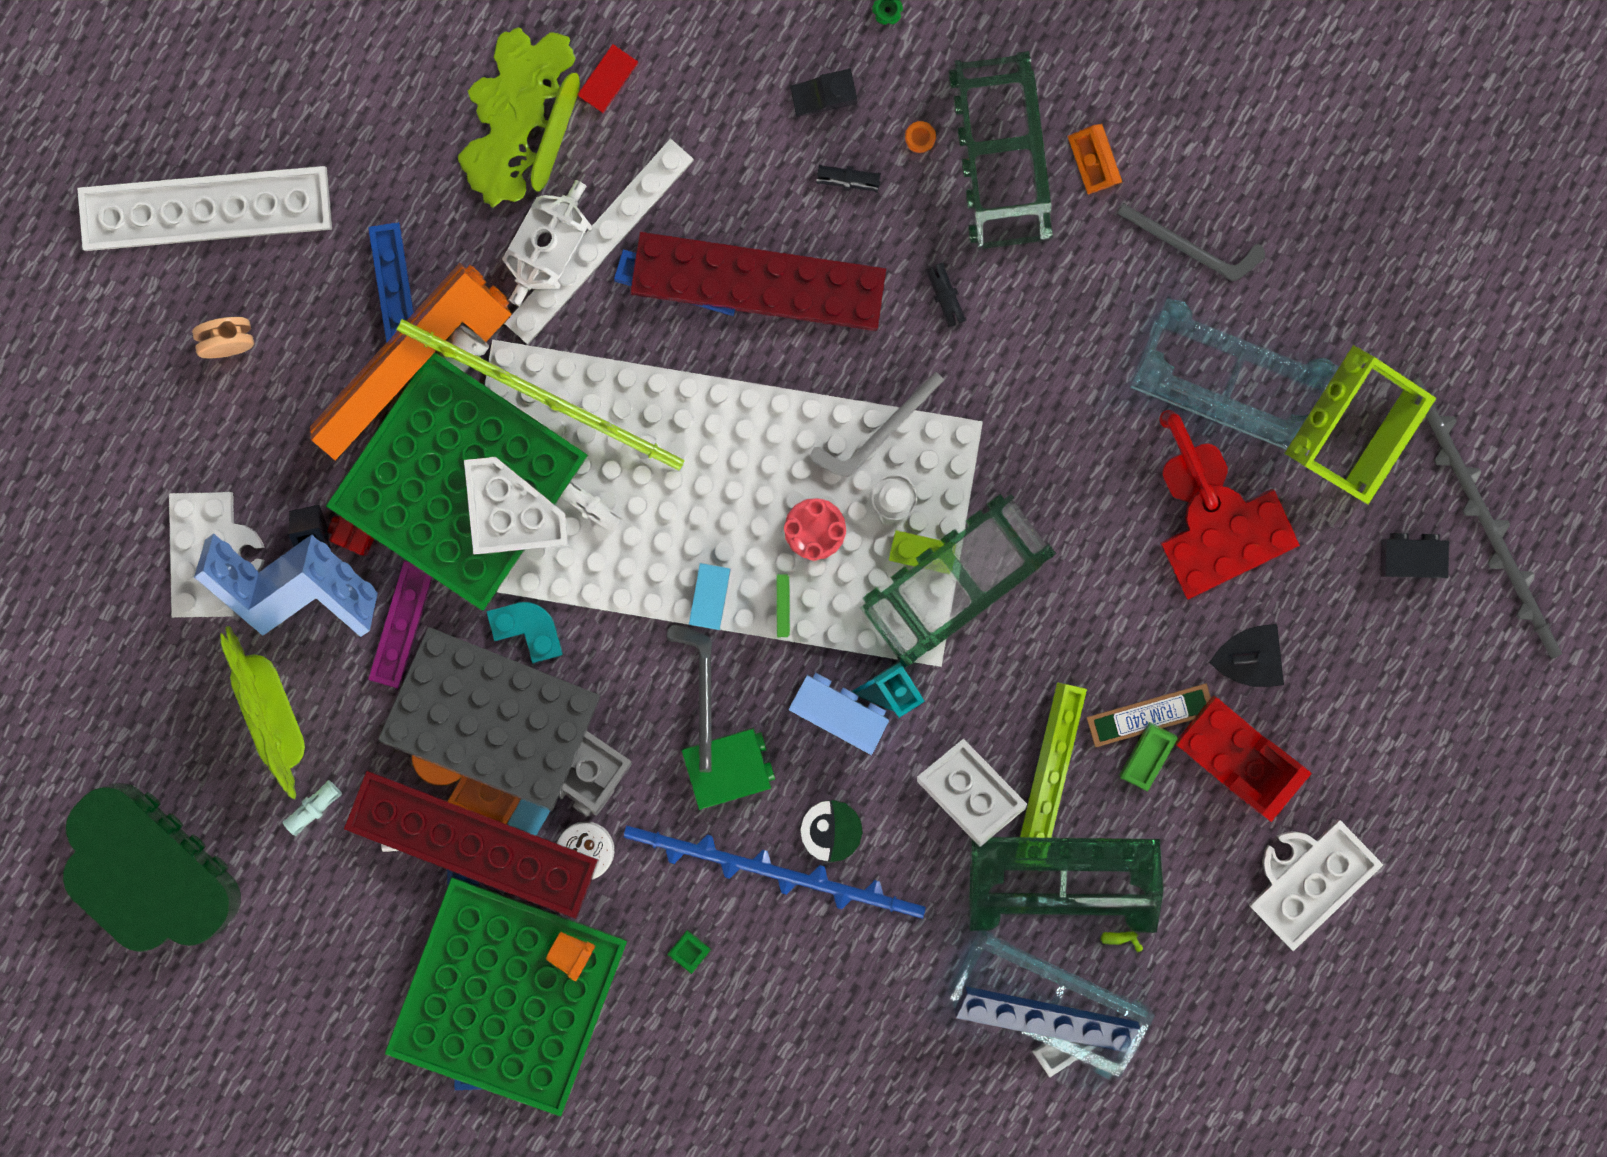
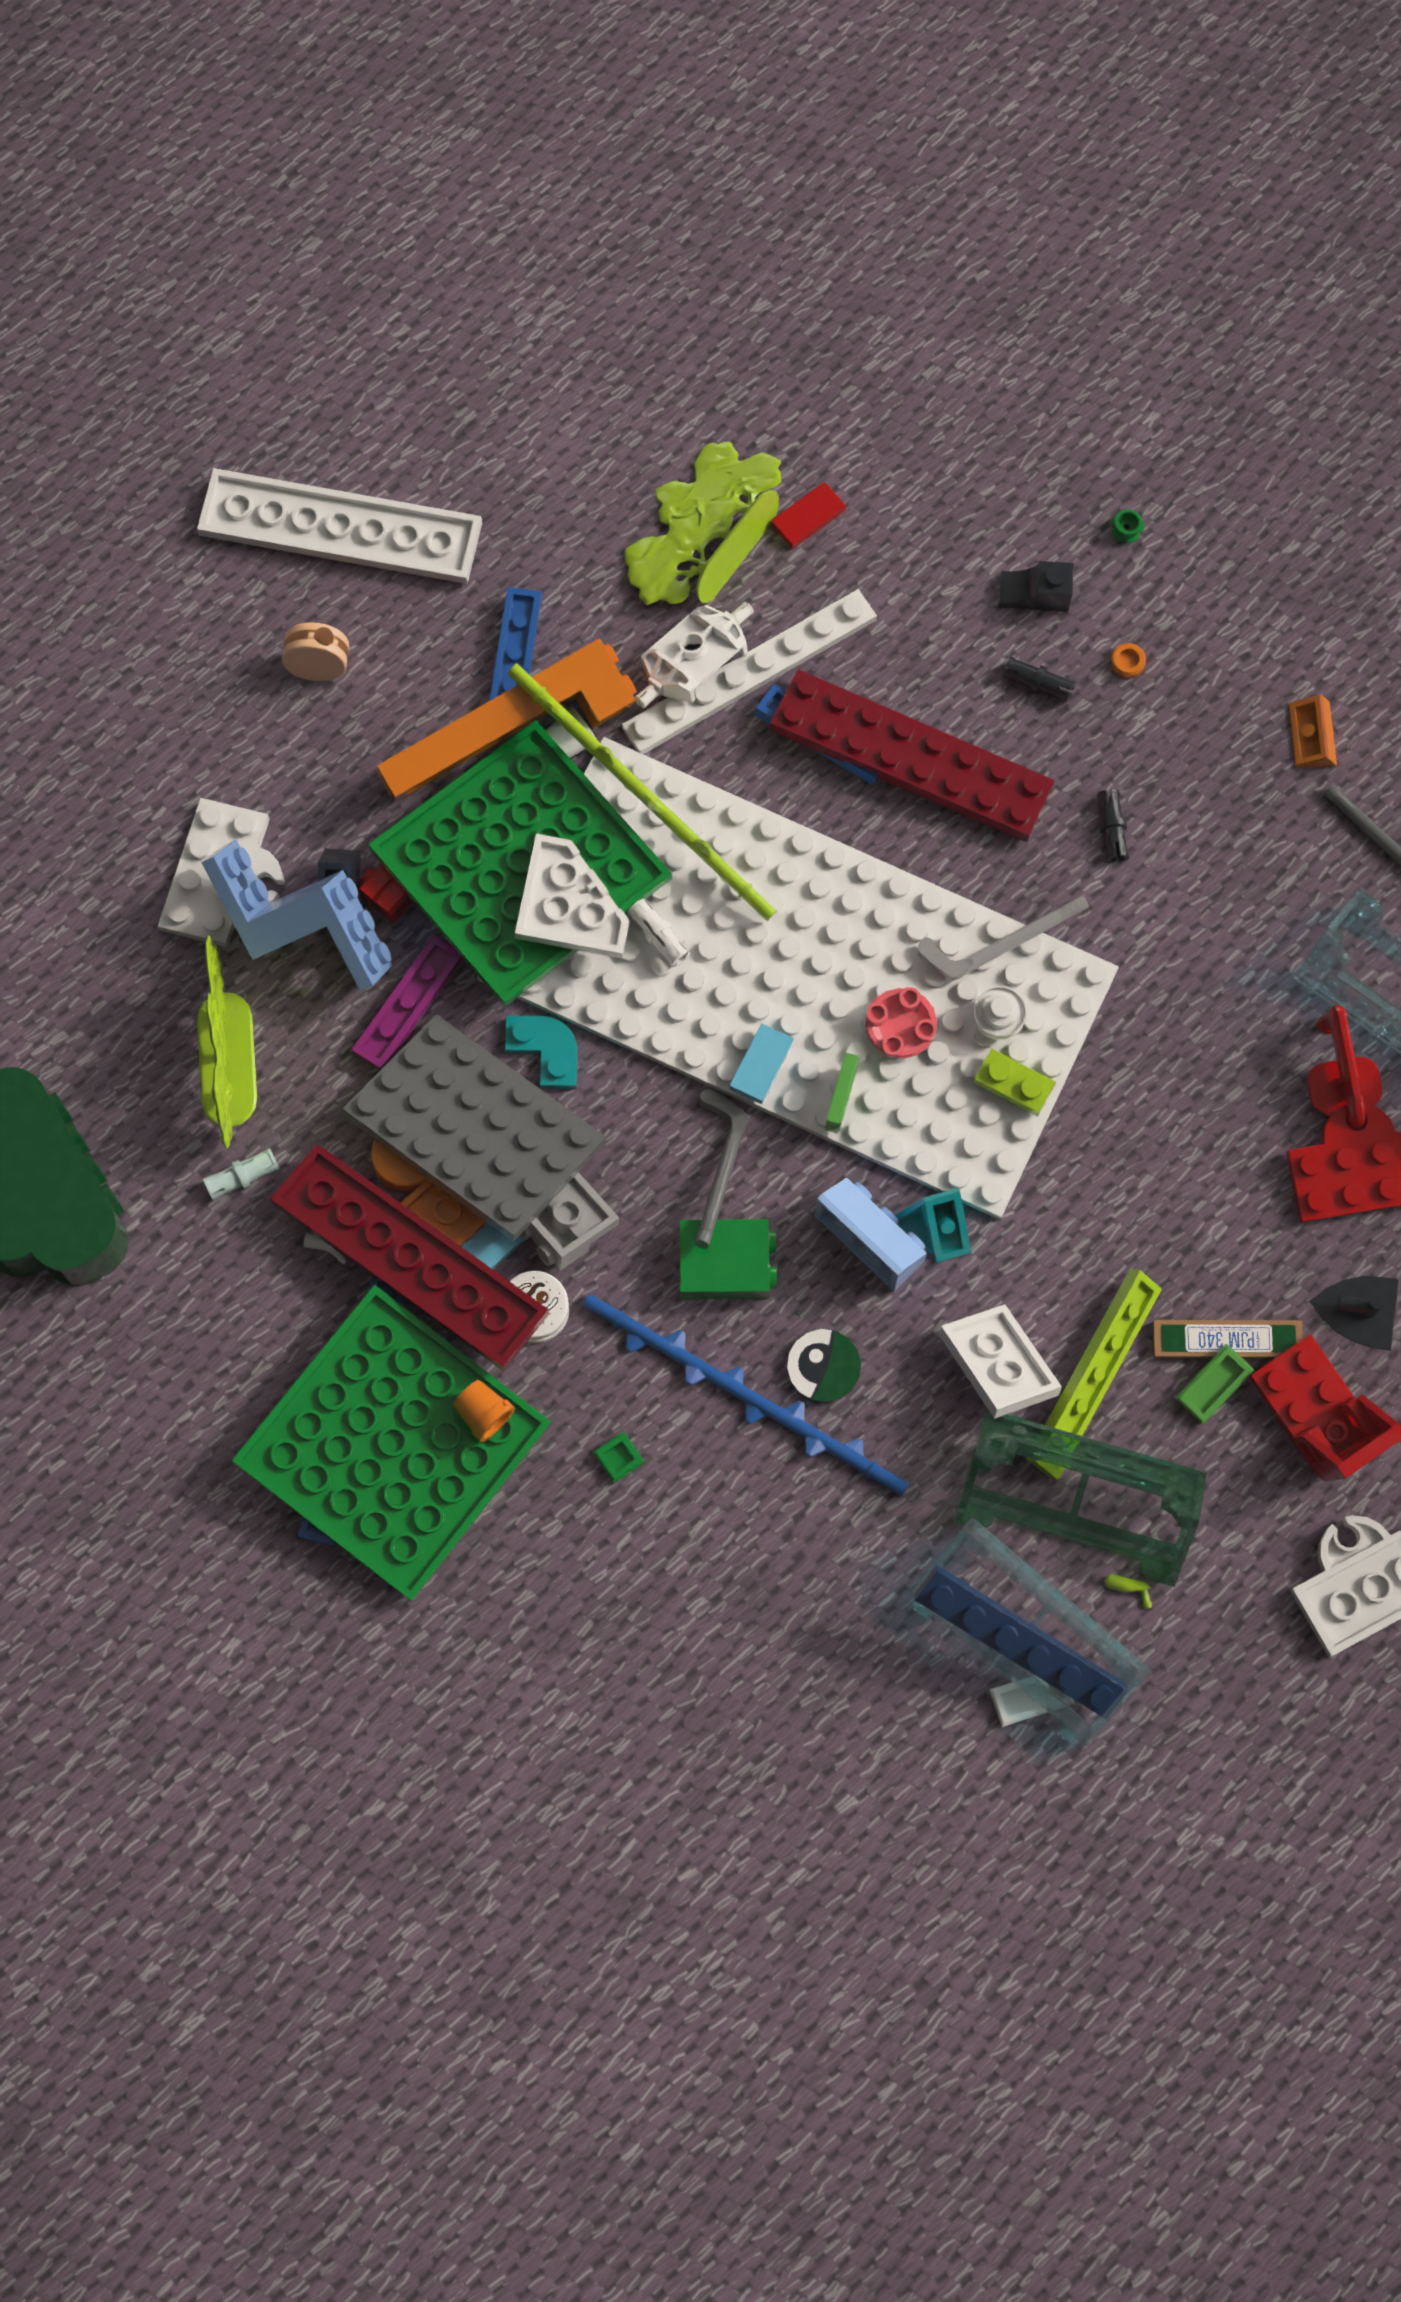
camera: 15 degrees right, 15 degrees down
(956, 580) = (1043, 1116): windscreen -> none
(1032, 141) = (1253, 679): clear green windscreen -> none

